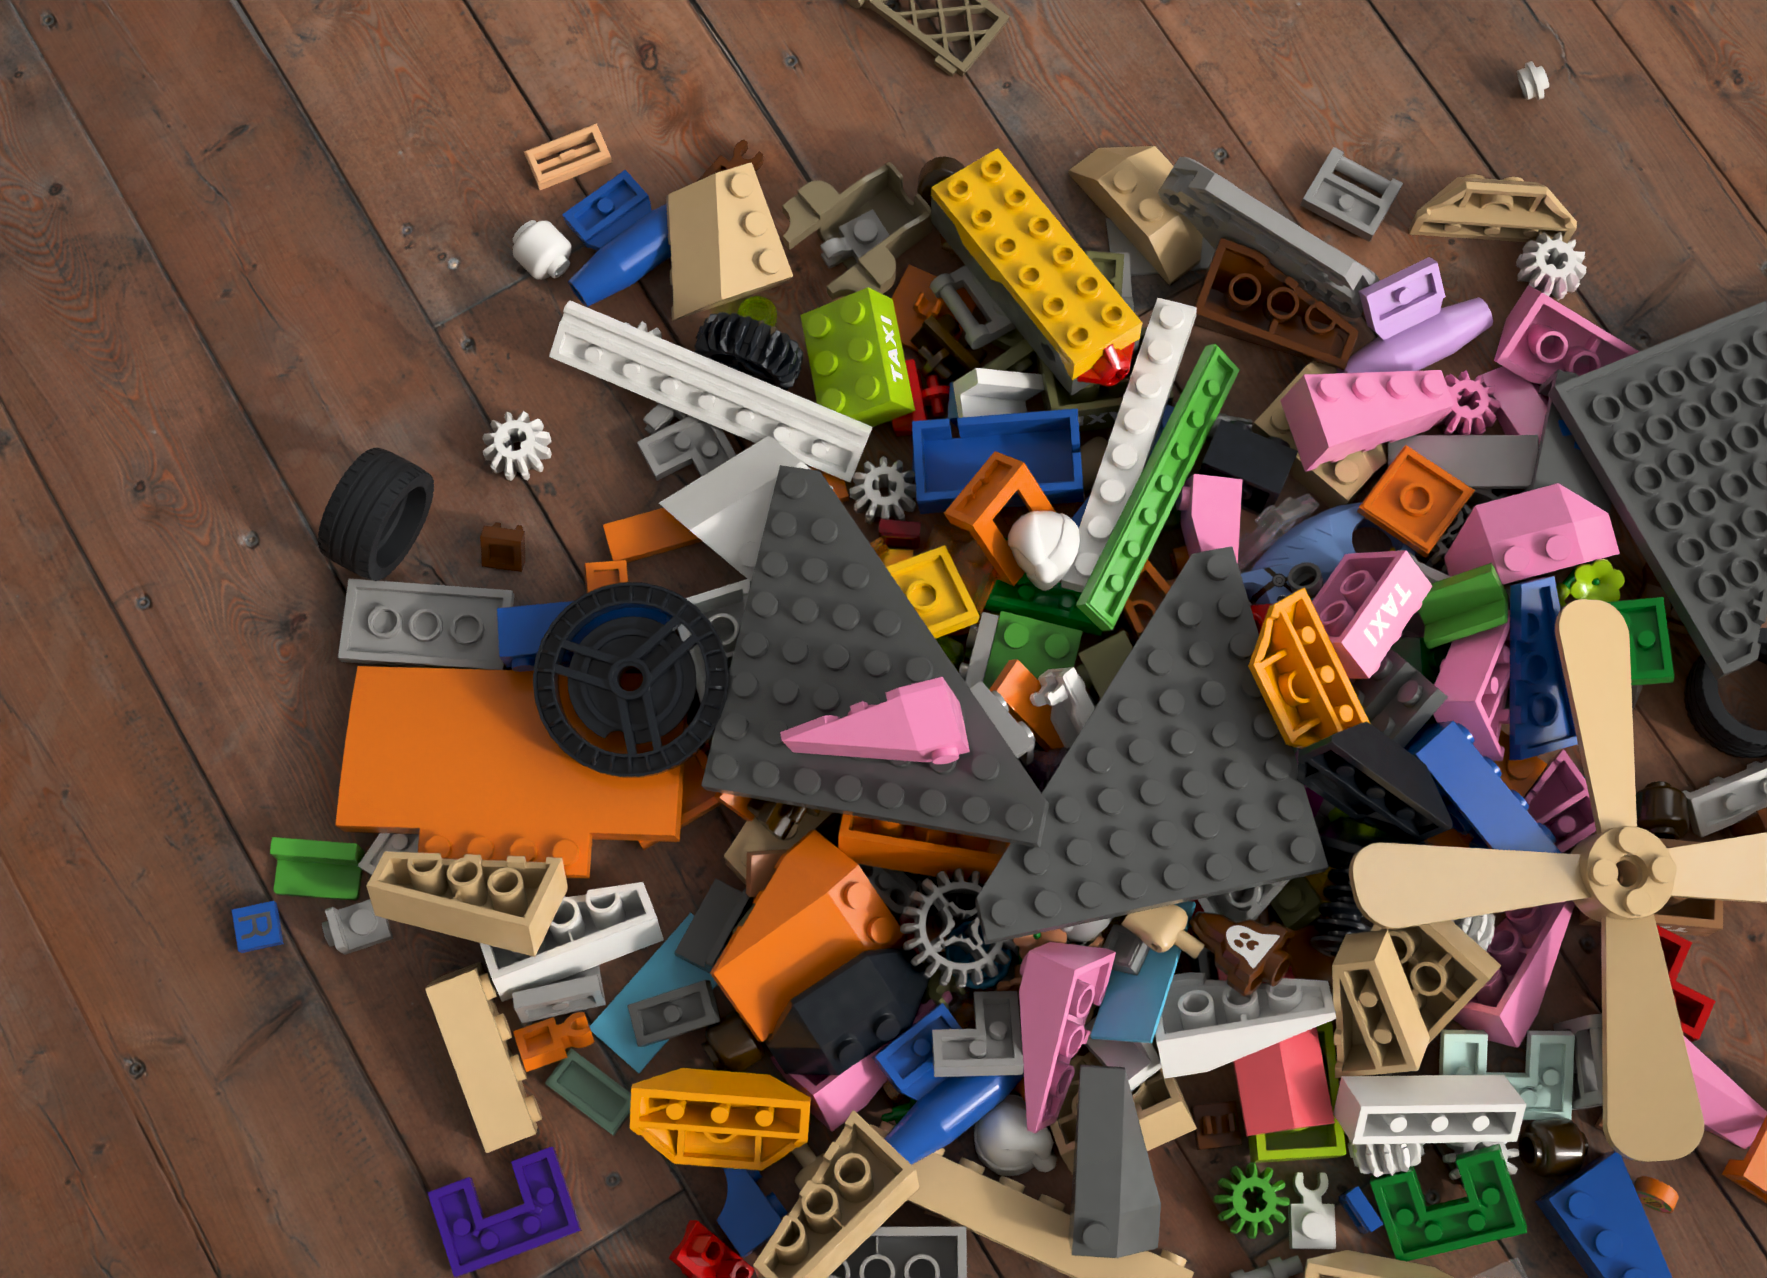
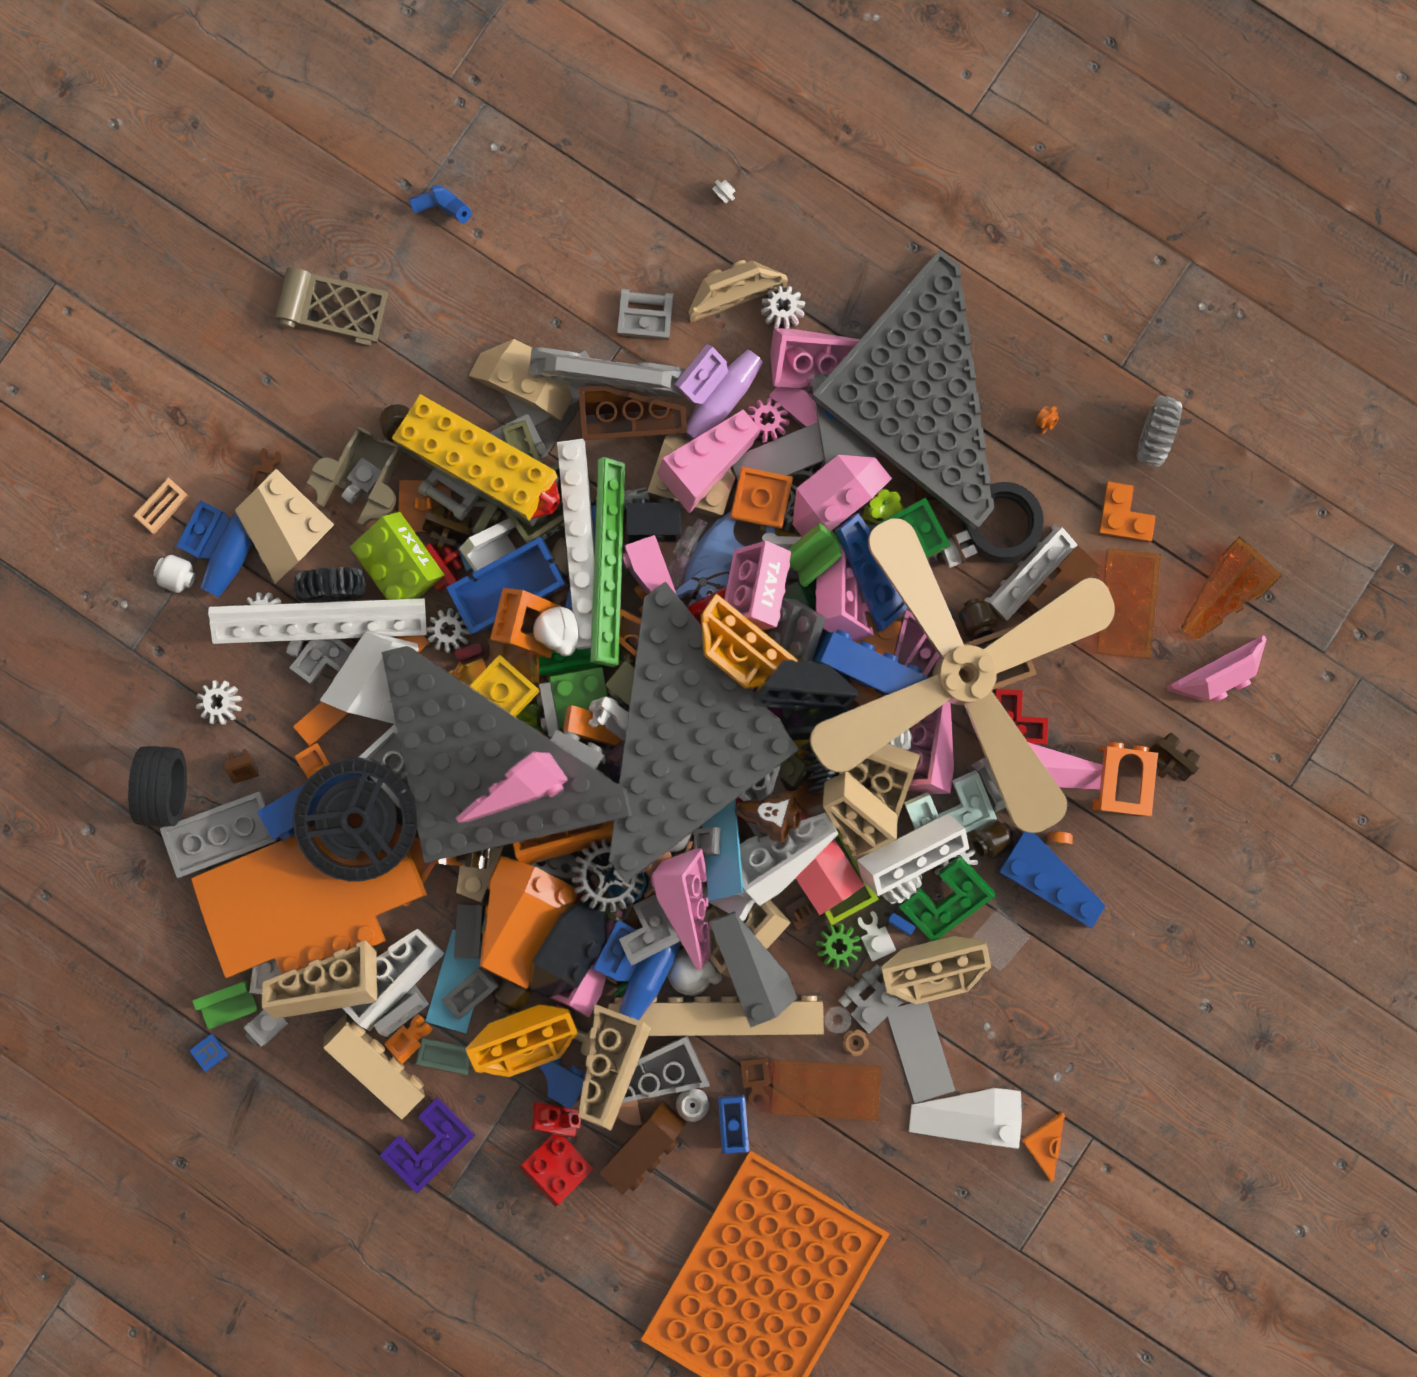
camera: 20 degrees left, 10 degrees up
(759, 309) = (323, 555): clear neon green plate -> none
(760, 869) = (480, 891): nougat tile -> none
(1162, 929) = (723, 824): tan piece -> none
(1307, 576) = (717, 577): dark grey hinge -> none
(1663, 701) = (958, 553): none -> piece

